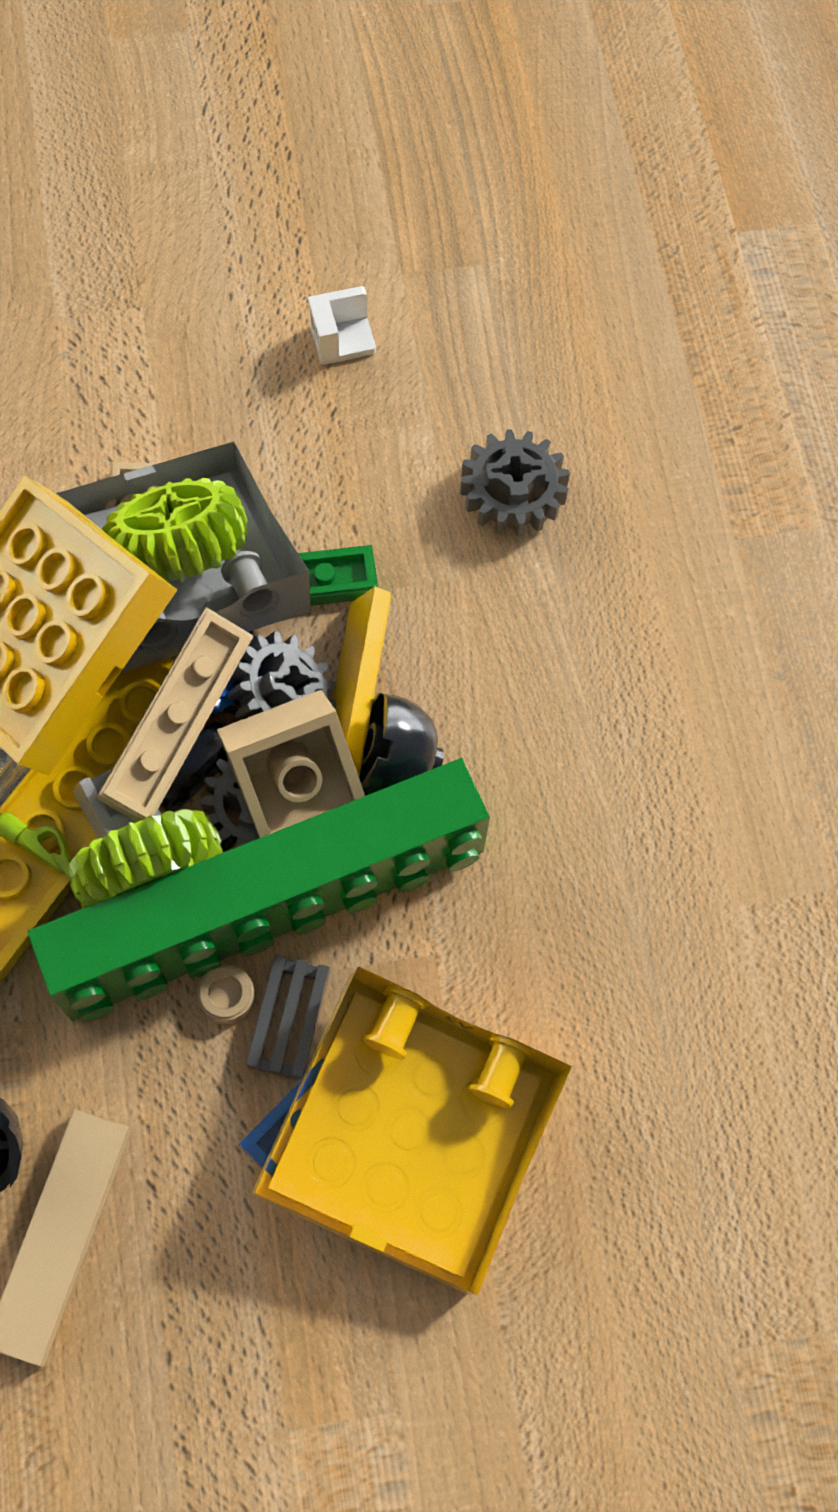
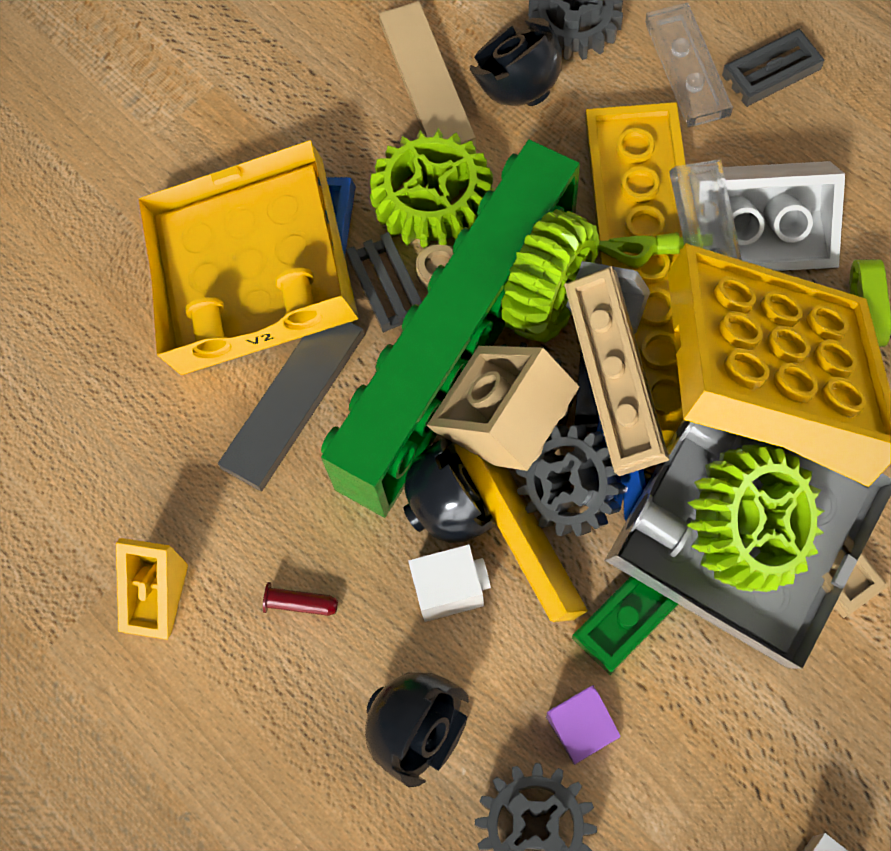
camera: 155 degrees right, 0 degrees up
(171, 1047) = (442, 167): none -> lime gear
(423, 530) = (583, 724): none -> medium lavender slope
(448, 688) = (449, 582): none -> white brick
(482, 951) = (289, 404): none -> dark grey tile
(557, 600) = (414, 725): none -> black cylinder
(582, 770) = (298, 601): none -> dark red piece
(705, 866) = (148, 587): none -> yellow slope

